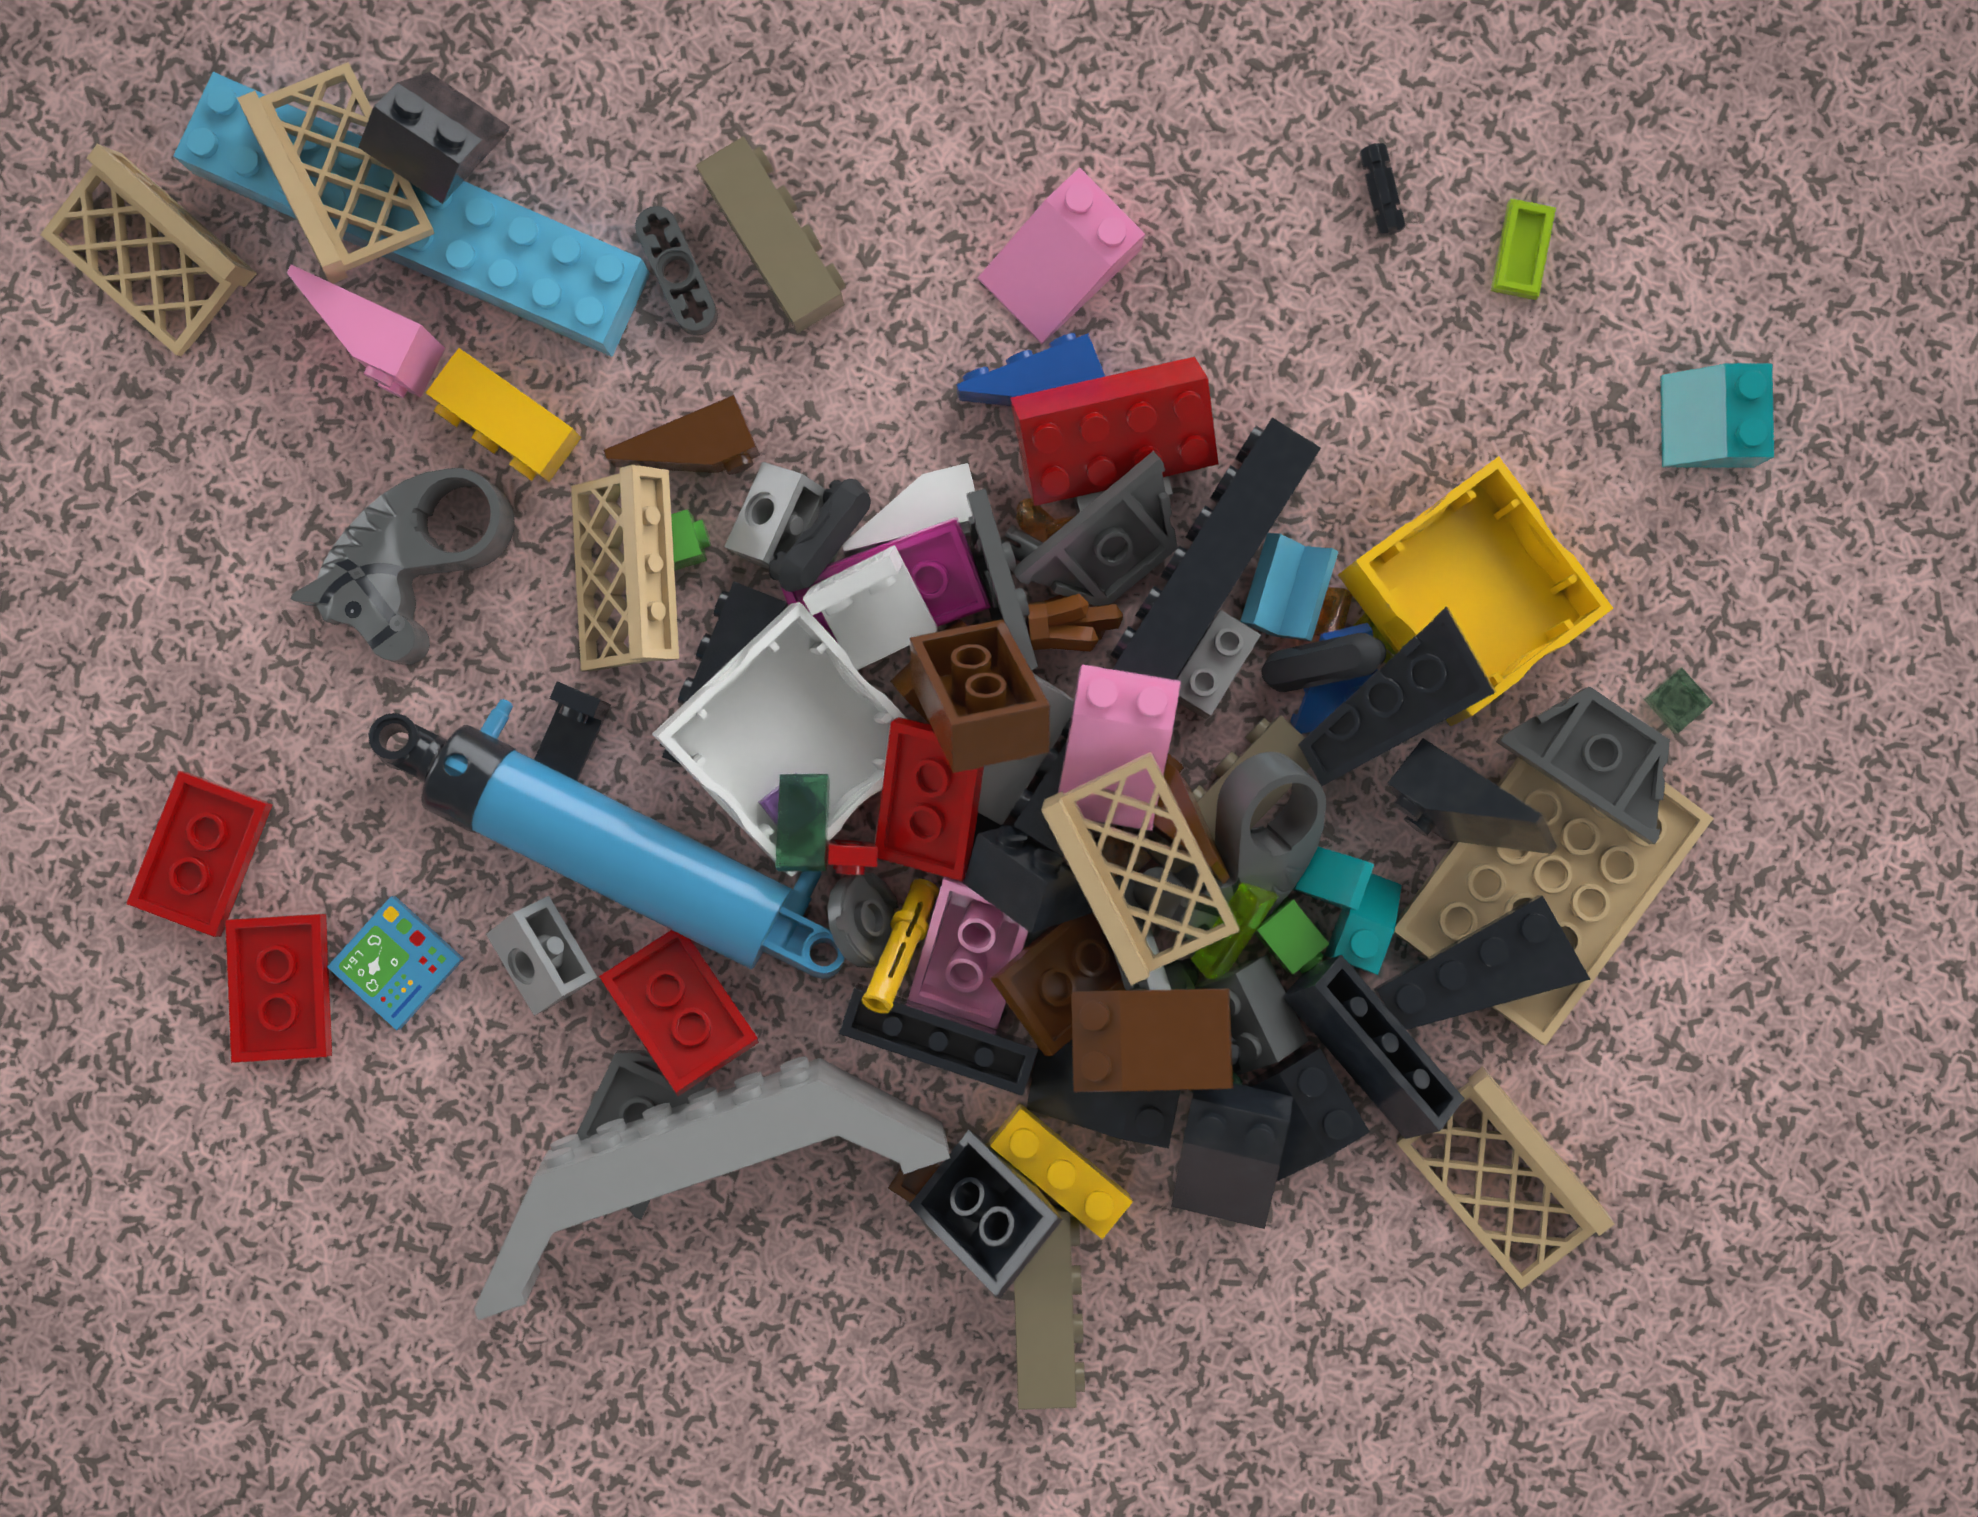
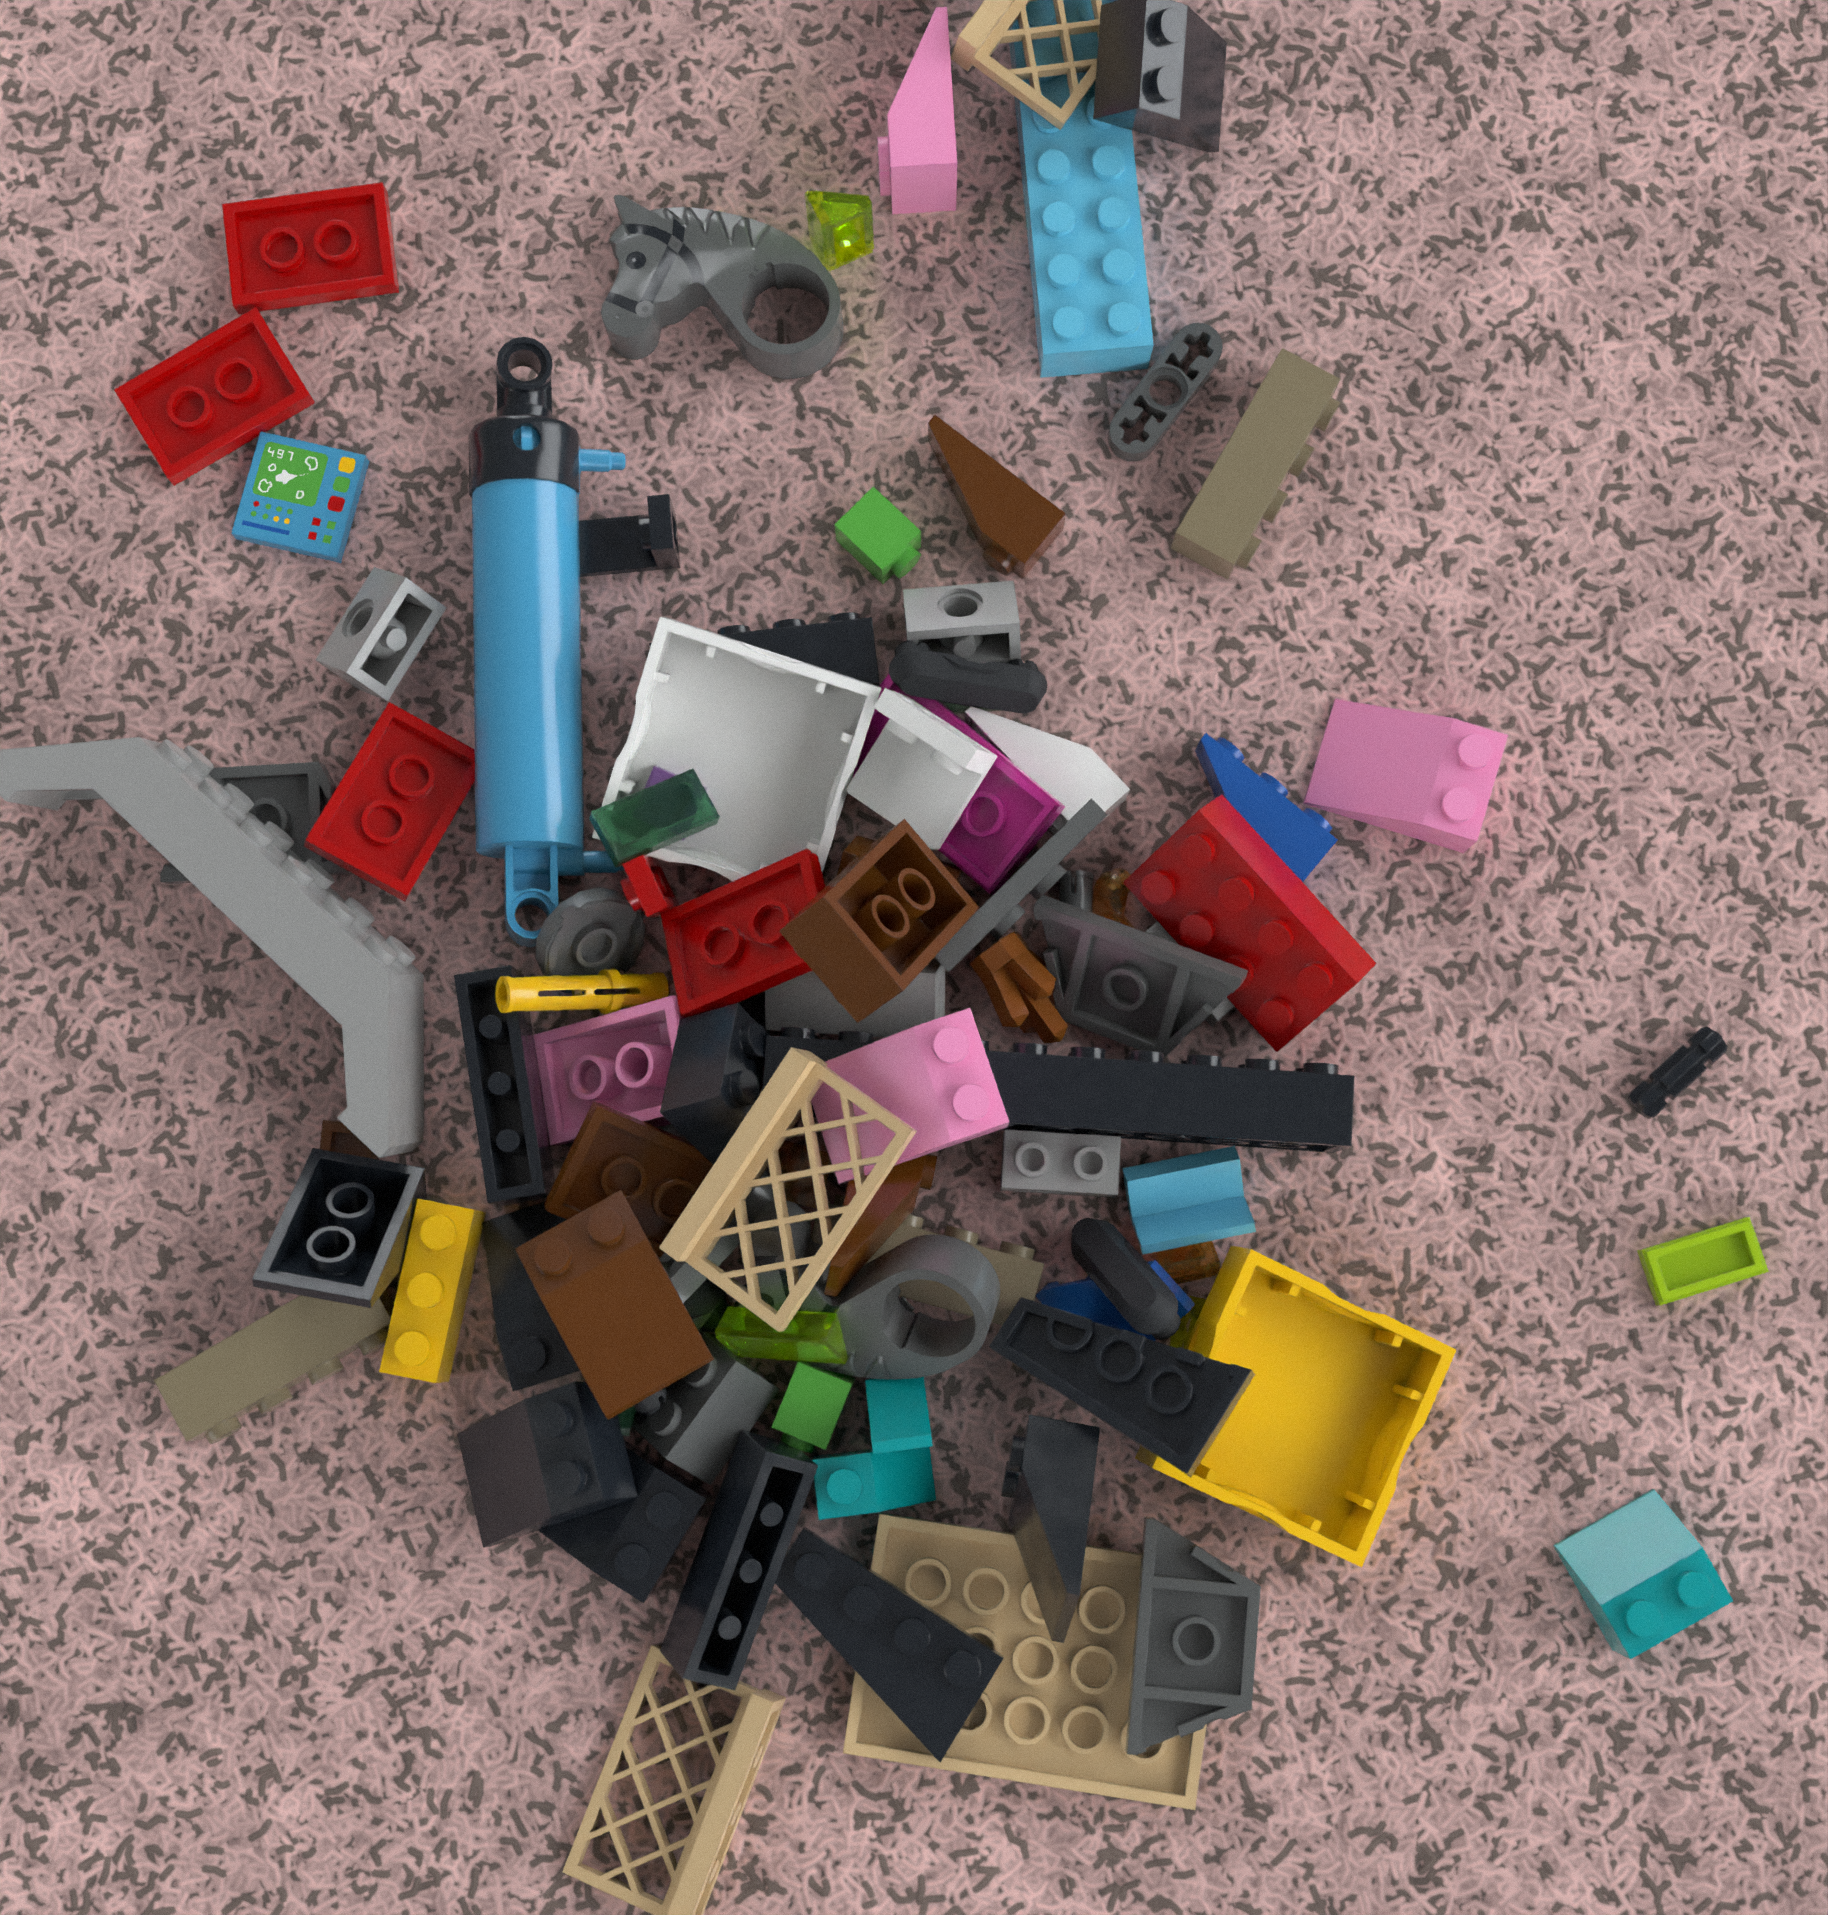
camera: 65 degrees right, 5 degrees down
(414, 442) = (839, 226): none -> clear neon green slope
(502, 417) = (914, 300): yellow brick -> none
(644, 569) = (824, 526): tan fence -> none
(1678, 700) = (1305, 1701): clear green tile -> none

